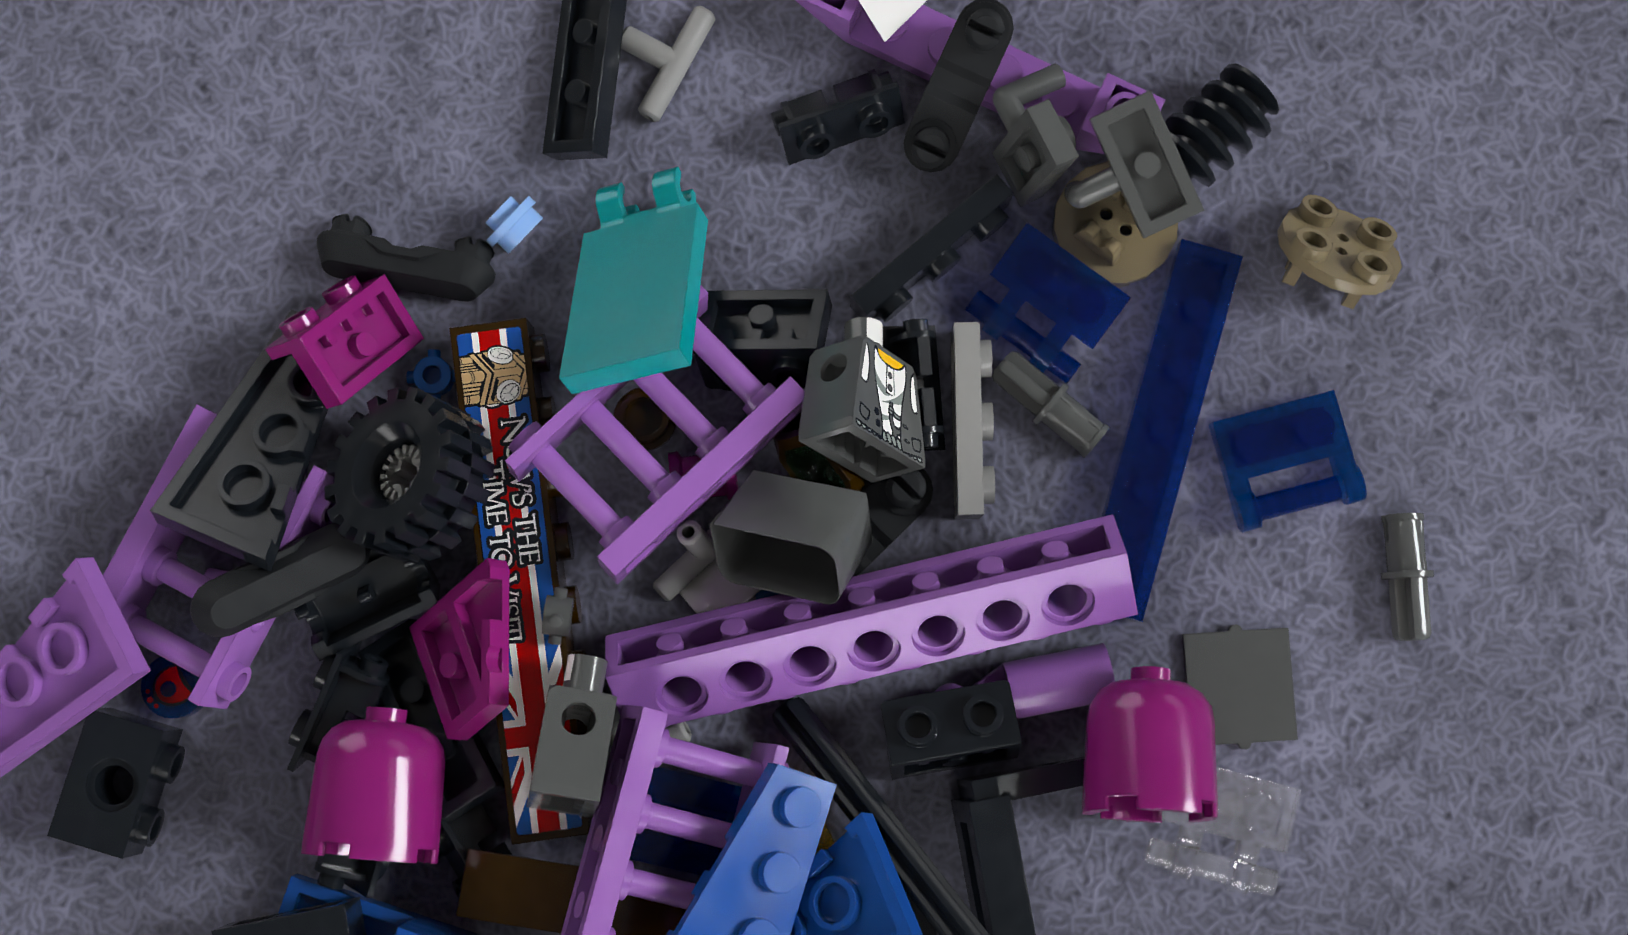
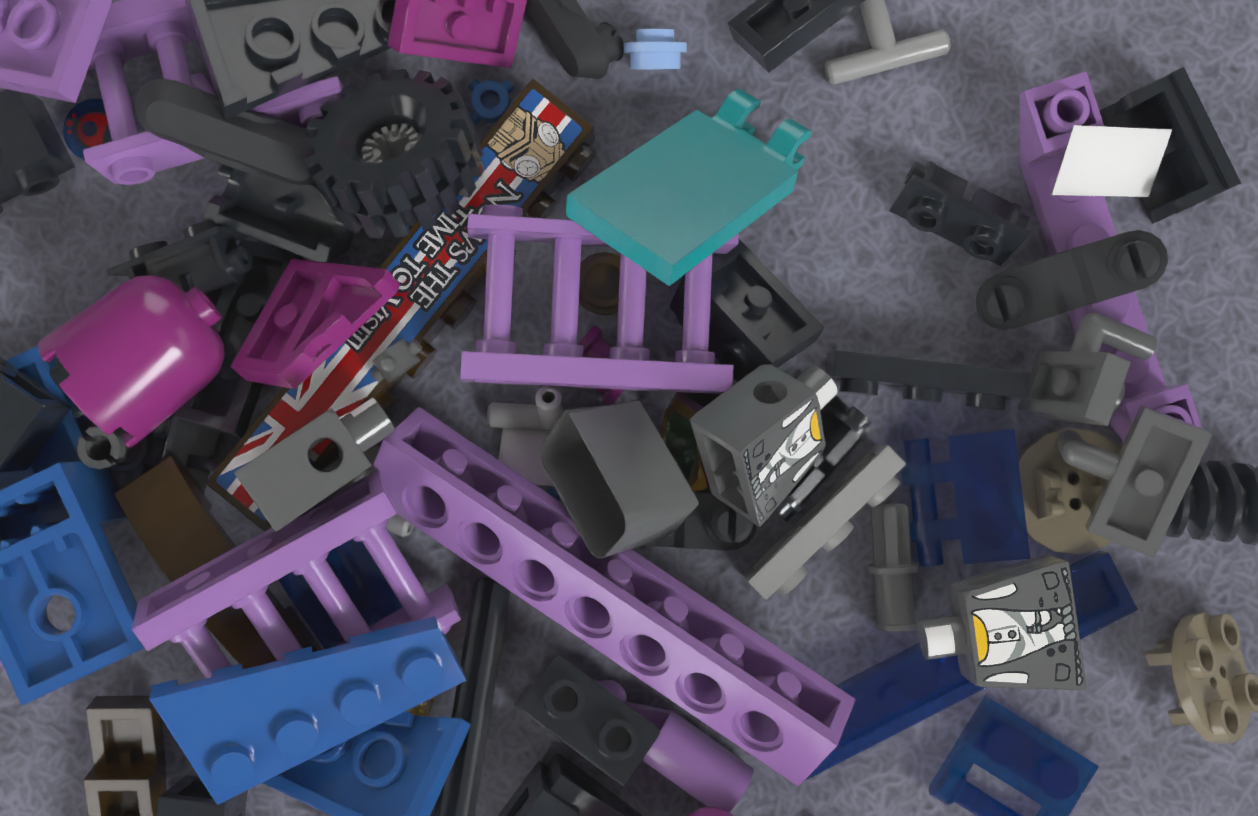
camera: 45 degrees right, 5 degrees up
(430, 880) = (110, 451): none -> dark grey pin
(1166, 357) = (1012, 628): none -> torso

